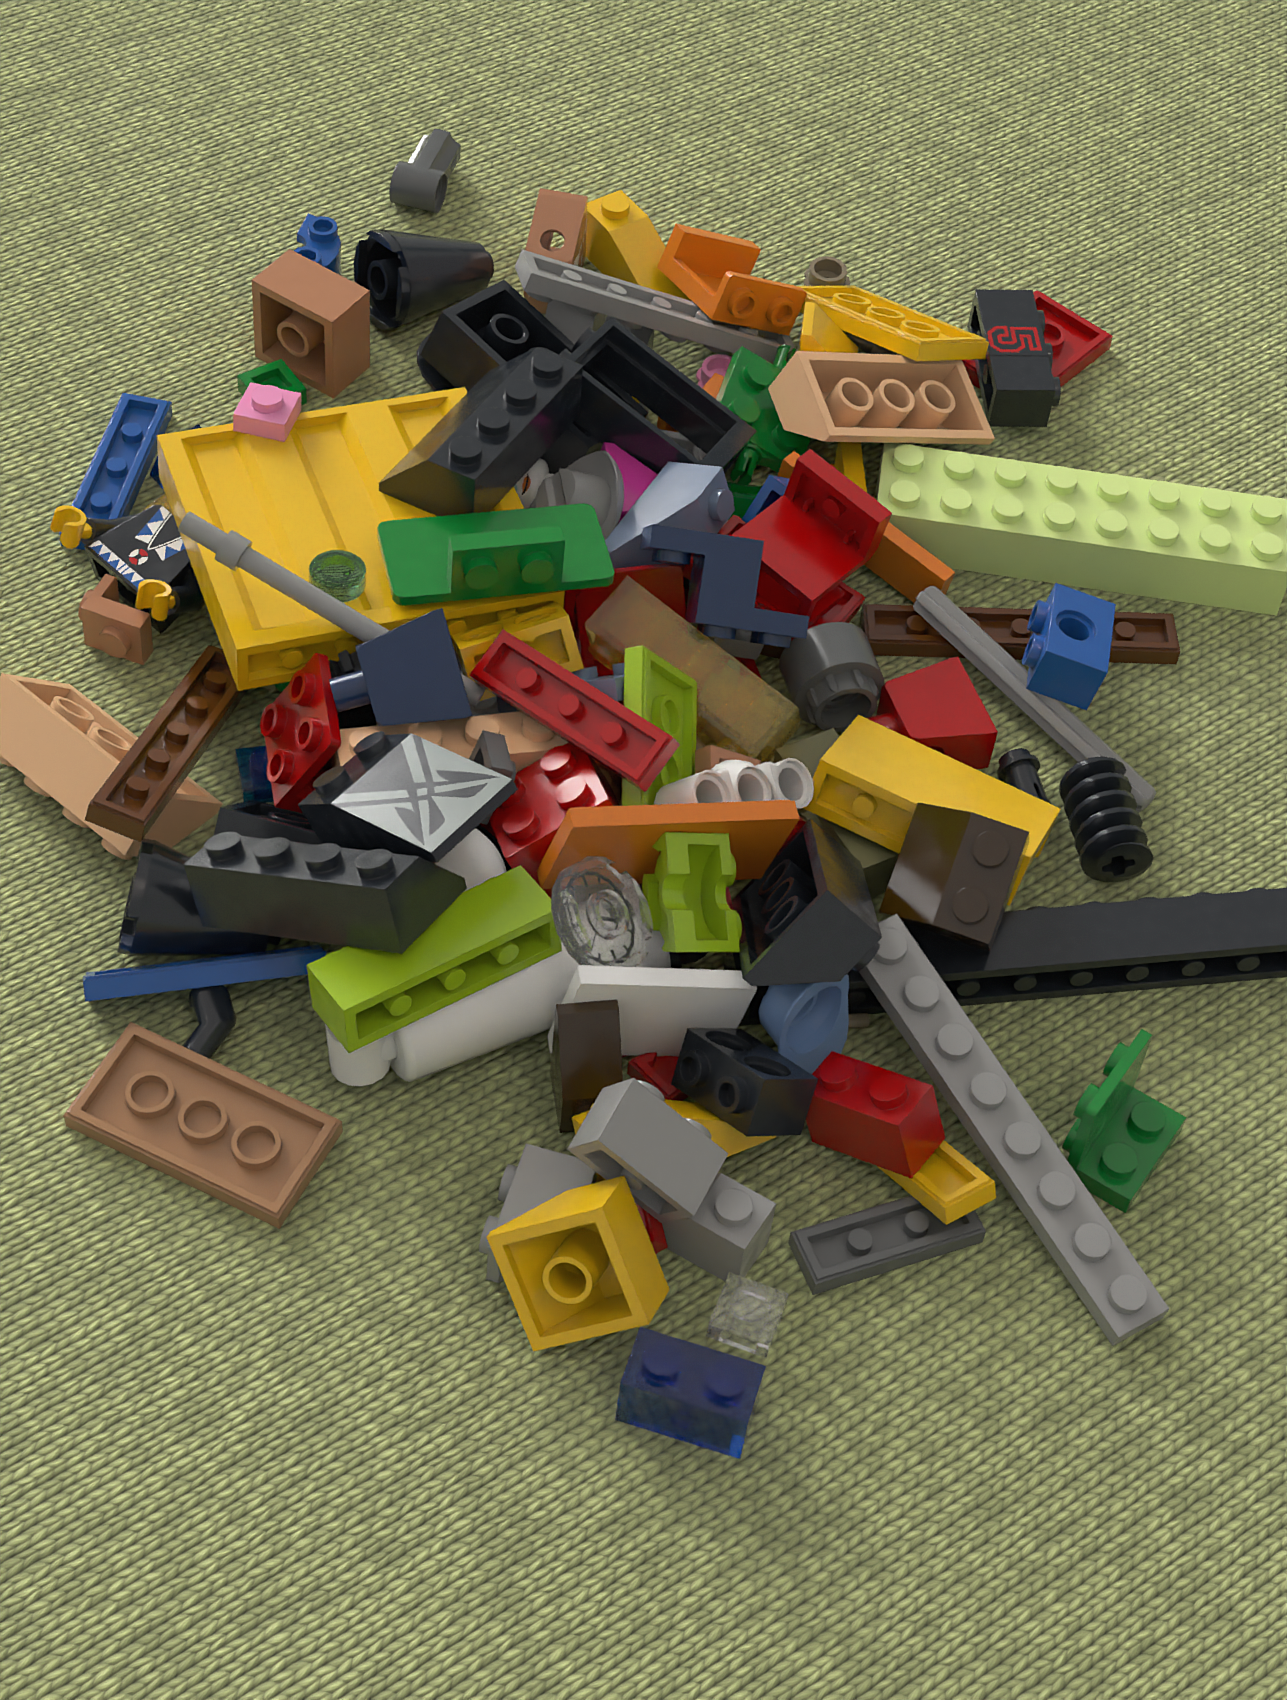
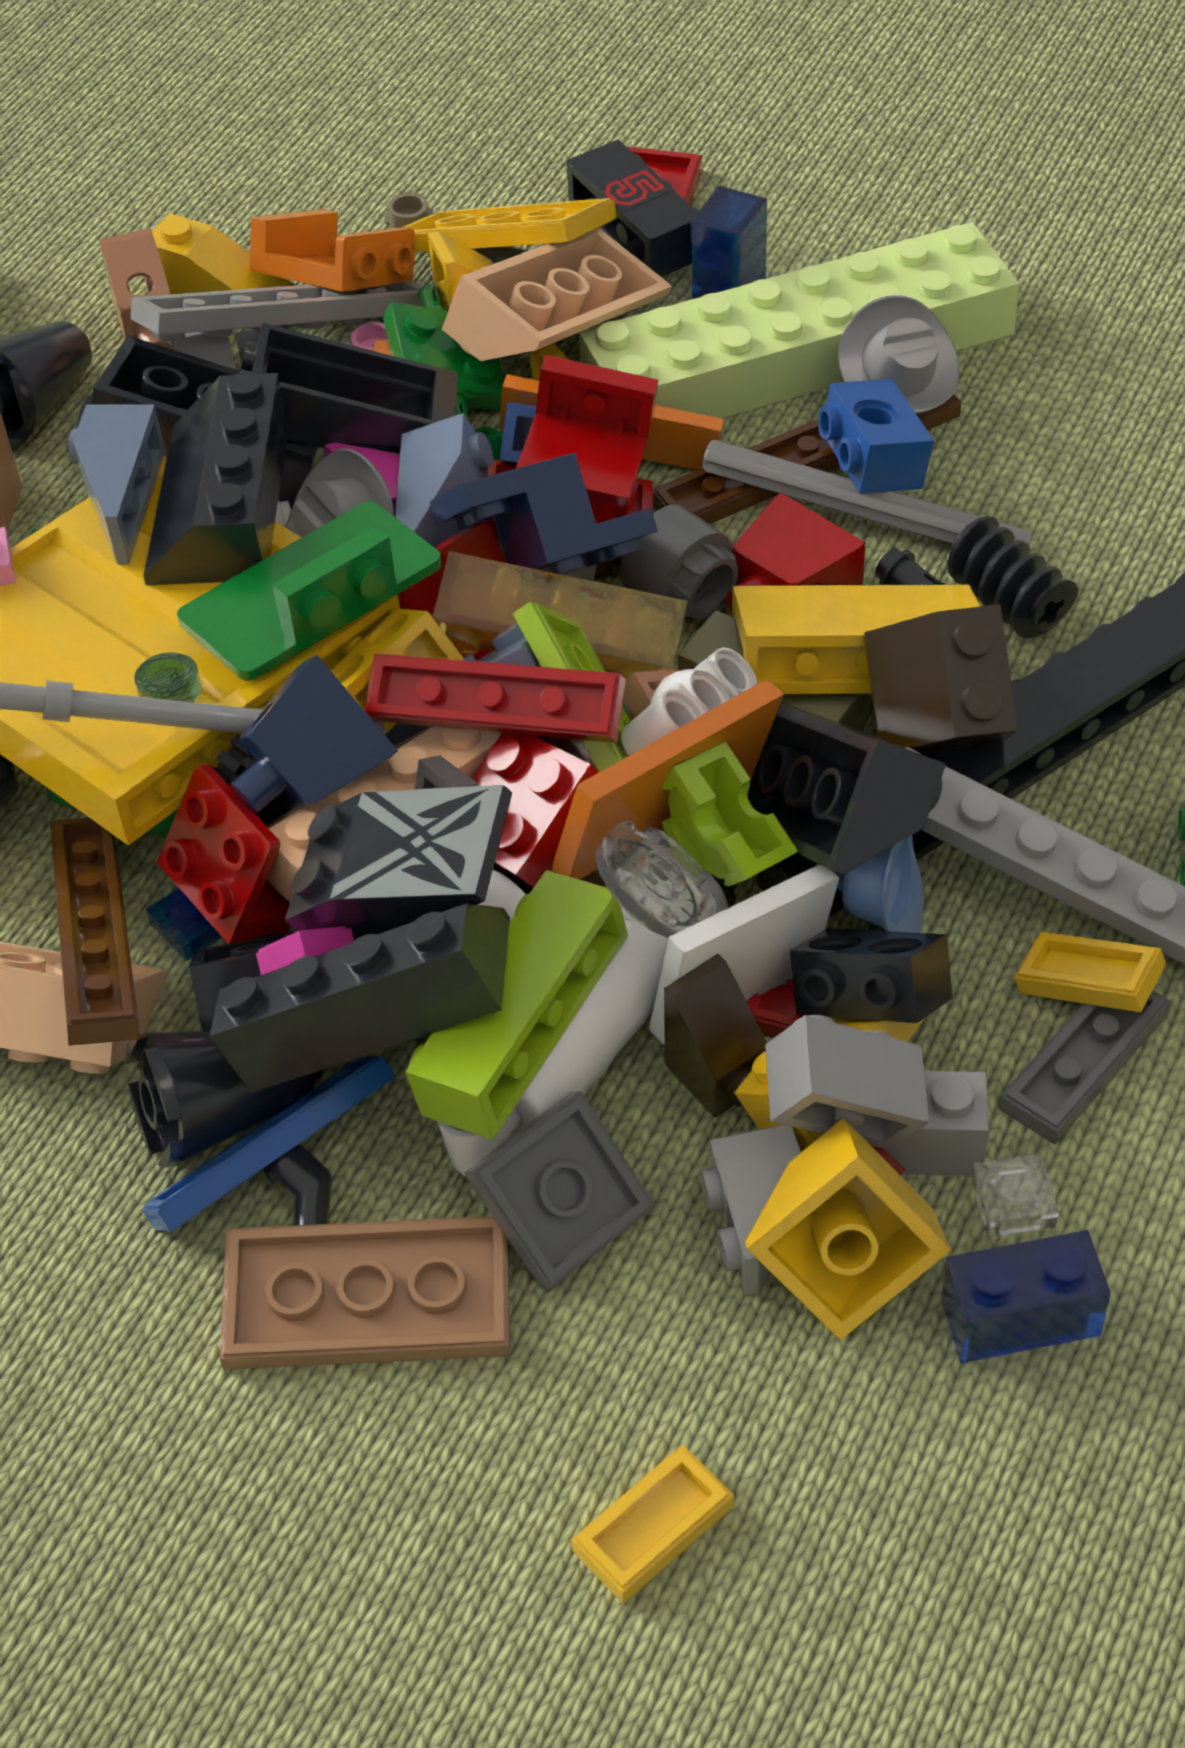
camera: 20 degrees left, 0 degrees up
(295, 1407) = (652, 1523): none -> yellow tile
(296, 831) = (302, 944): none -> dark pink tile
(391, 1121) = (560, 1189): none -> dark grey tile
(420, 382) = (119, 462): none -> sand blue slope
(874, 1114) = (1010, 943): red brick -> none
(1064, 423) = (728, 242): none -> brick
(1149, 582) = (904, 343): none -> light grey hat

